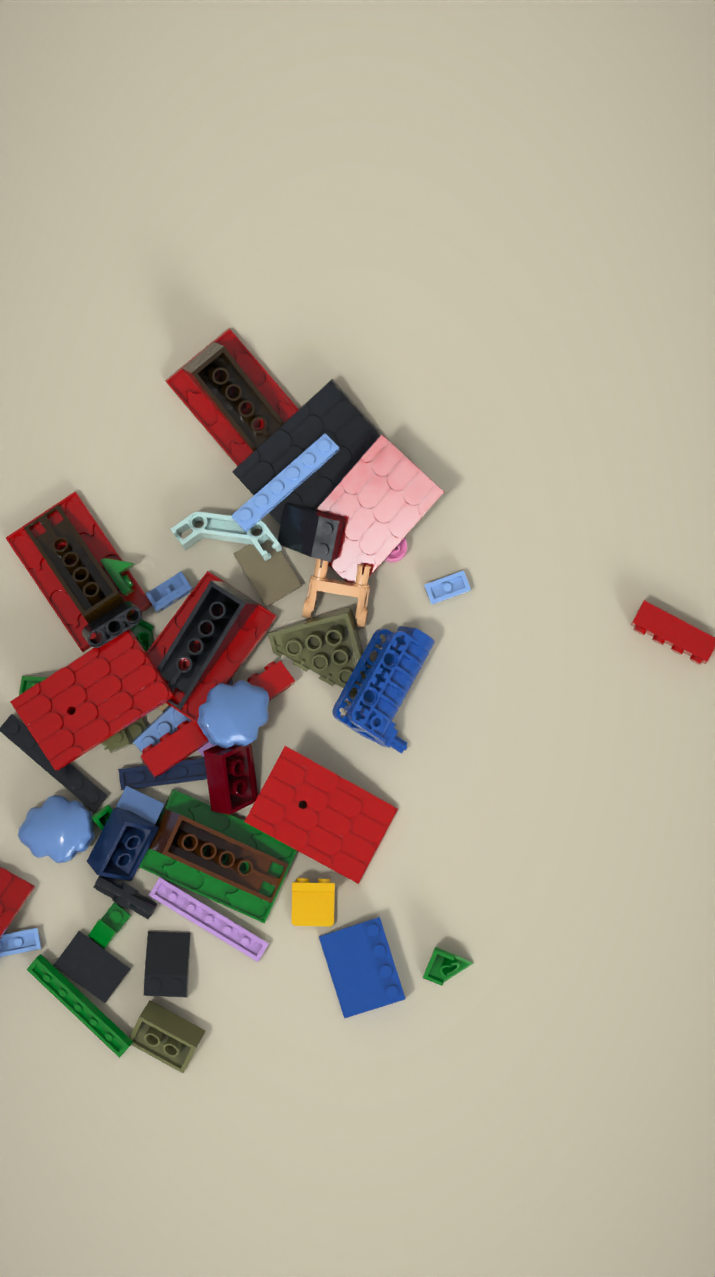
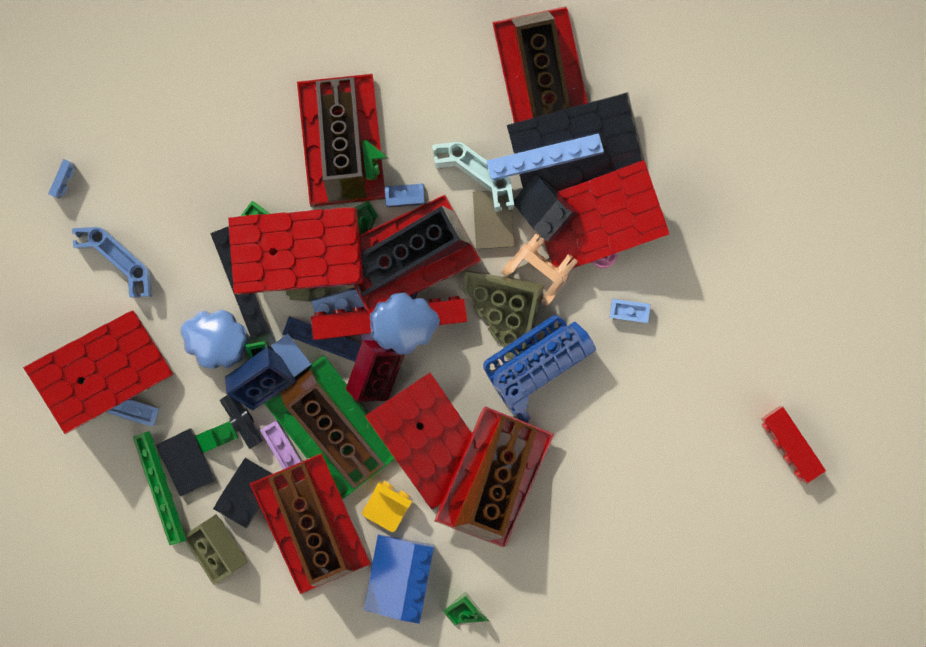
camera: 30 degrees right, 5 degrees up
(122, 624) = (352, 203): black beam -> none
(231, 949) = (305, 507): none -> piece
(402, 818) = (494, 477): none -> piece

